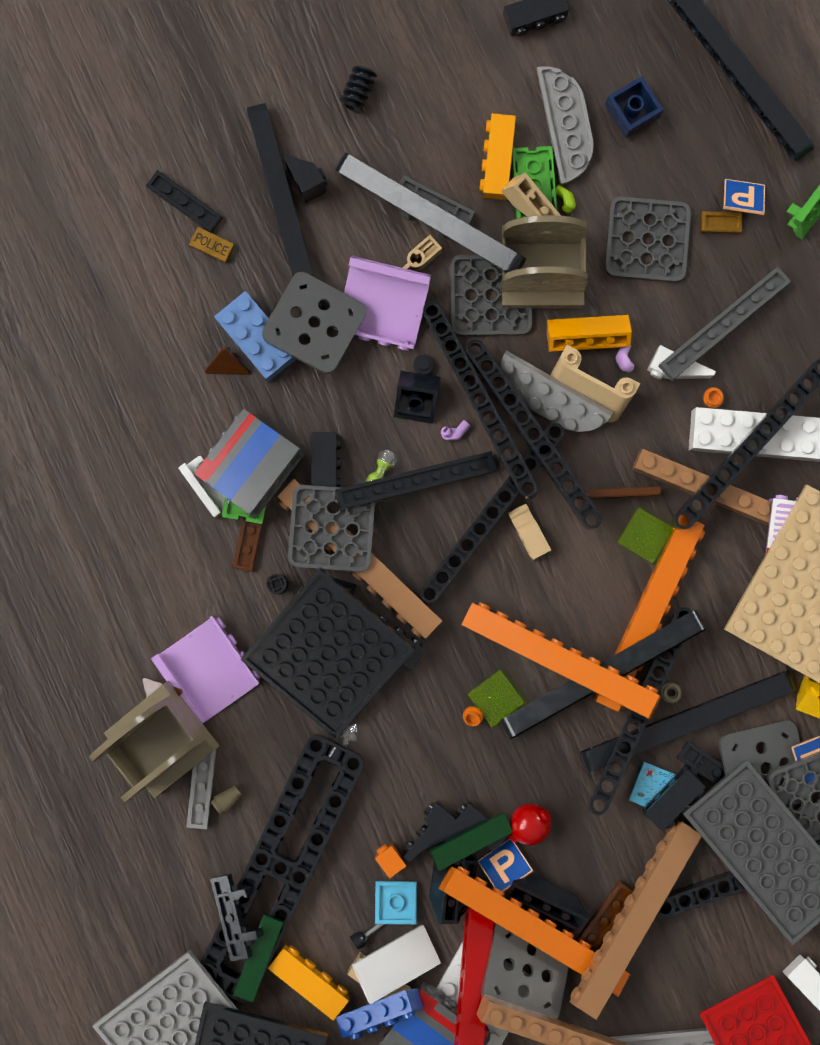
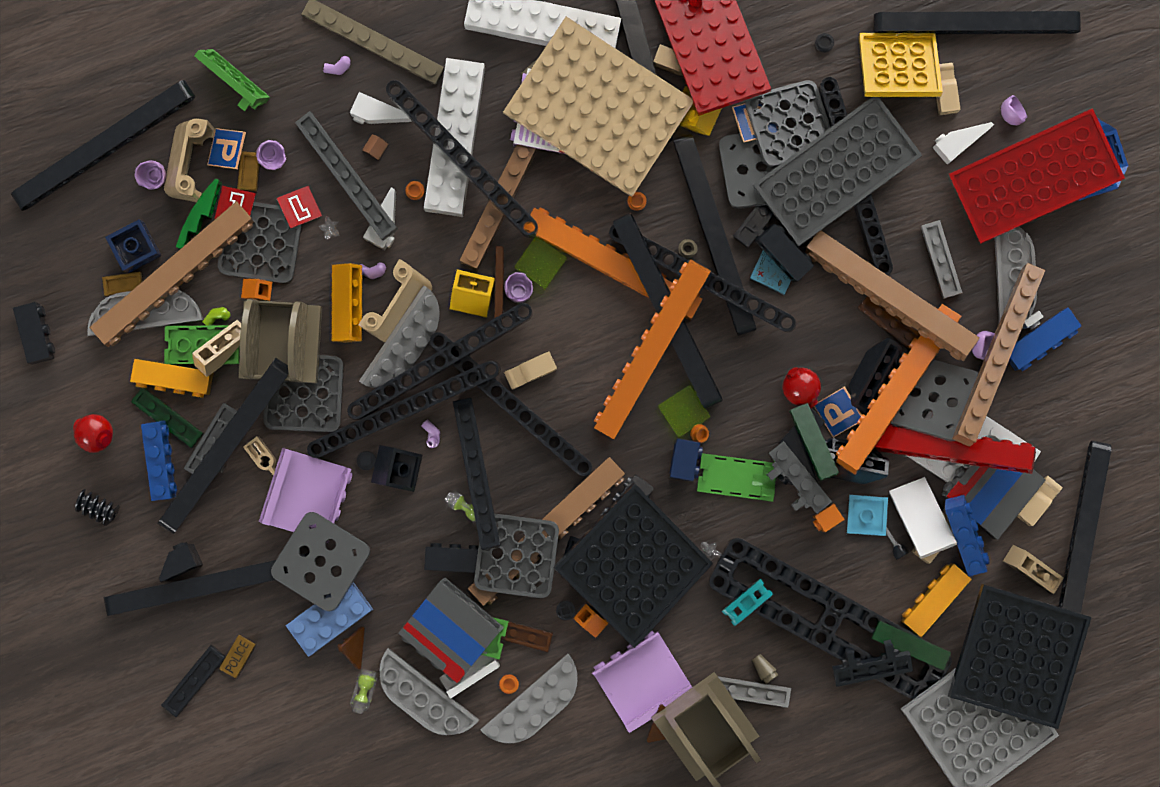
camera: 90 degrees left, 0 degrees up
(176, 558) = (535, 705): none -> light grey plate
(177, 439) = (422, 698): none -> light grey plate
(192, 378) = (366, 681): none -> clear piece
(197, 528) = (509, 684): none -> orange plate
(267, 611) = (590, 620): none -> orange brick
(294, 777) = (747, 602): none -> teal plate
(410, 148) = (158, 460): none -> blue brick
(420, 837) = (808, 489): none -> dark grey hinge
(428, 760) = (736, 477): none -> bright green piece
(435, 79) = (93, 433): none -> red brick
(443, 702) = (685, 459): none -> dark blue brick
(456, 155) = (161, 412): none -> dark green tile
(587, 1022) = (982, 346): none -> lavender hair
(594, 100) = (121, 283): none -> pearl gold tile
(597, 238) = (256, 289): none -> orange brick
(606, 148) = (172, 274): none -> medium nougat brick
(607, 464) = (472, 293): none -> yellow slope
(617, 513) = (518, 287): none -> lavender hair
(666, 310) = (329, 228): none -> clear plant
(678, 970) = (941, 259): none -> light grey plate
(679, 177) = (203, 208): none -> green slope
(683, 210) = (230, 195): none -> red sticker
(687, 277) = (299, 207): none -> red sticker
(710, 119) = (150, 174): none -> lavender hair
(718, 635) = (637, 201): none -> orange plate
(741, 243) = (271, 155): none -> lavender hair
(757, 353) = (375, 146): none -> nougat slope
(758, 157) = (186, 134): none -> tan windscreen
(795, 350) = (374, 111): none -> white slope

